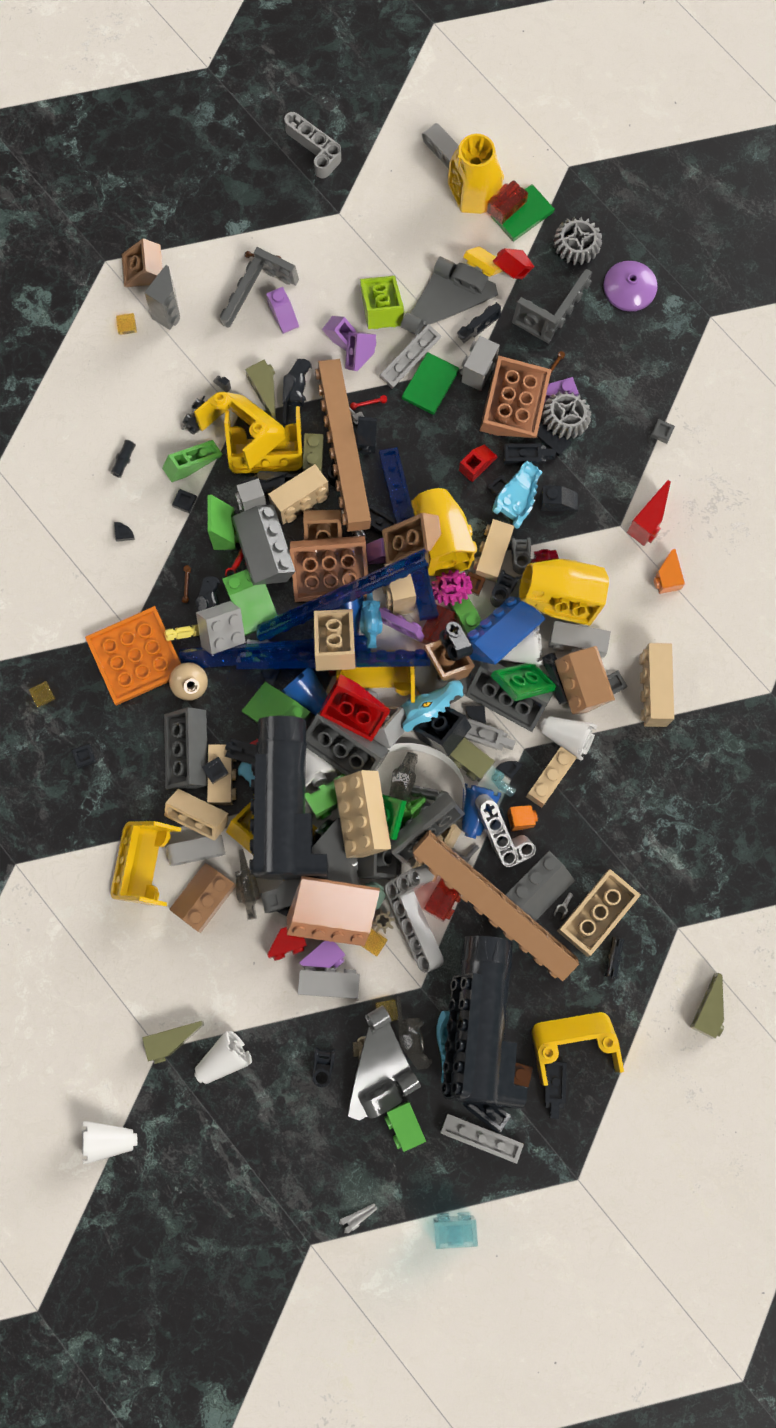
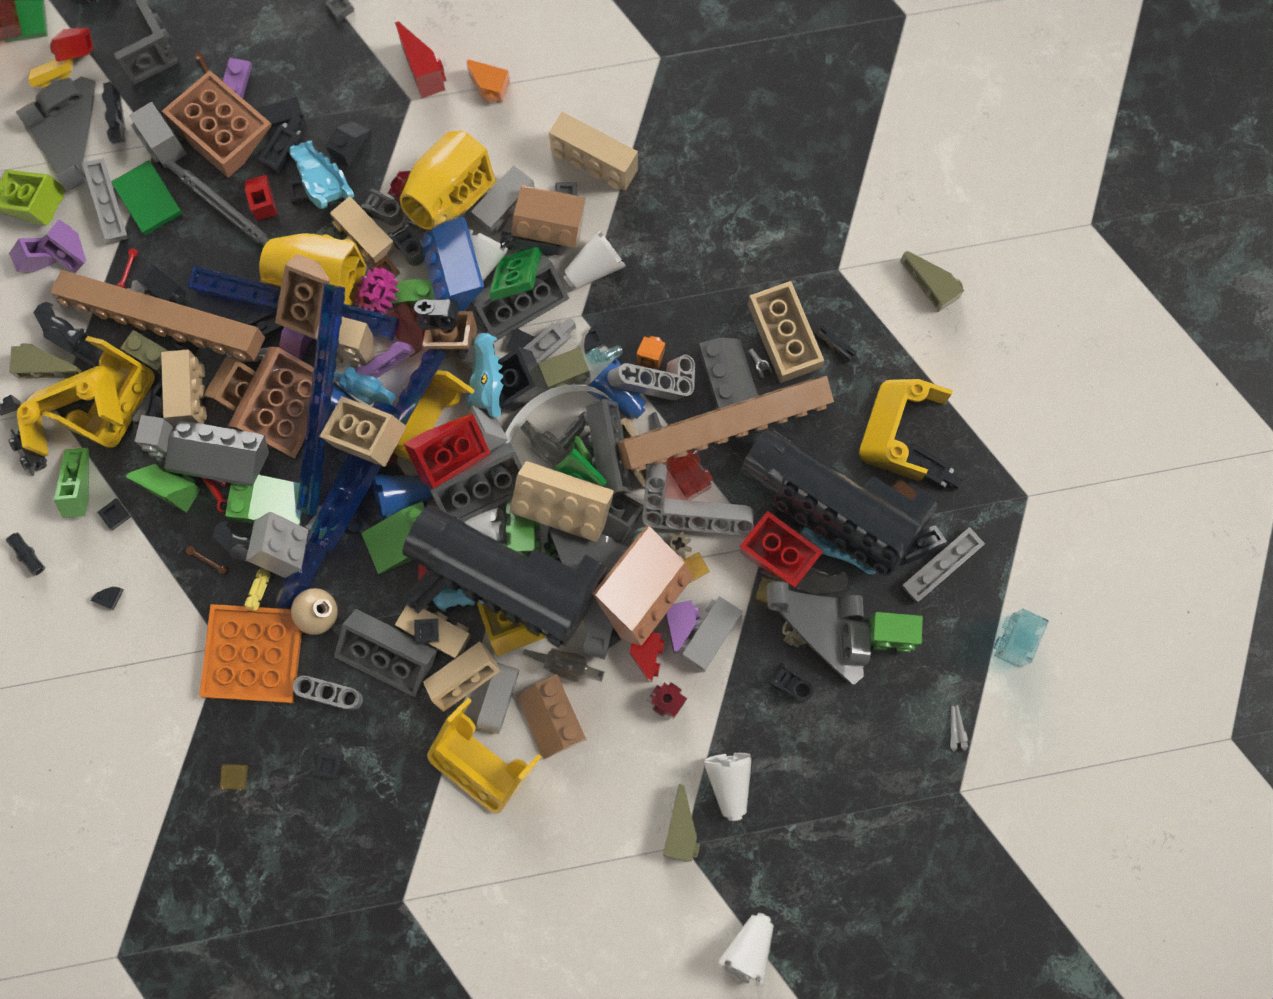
camera: 60 degrees left, 0 degrees up
(134, 716) = (318, 687): none -> light grey beam
(264, 984) = (672, 708): none -> dark red brick
(420, 1002) = (780, 550): none -> red slope
(455, 436) = (218, 203): none -> dark grey axle
(551, 777) = (626, 303): tan brick -> none
(571, 424) = (278, 81): light grey gear -> none

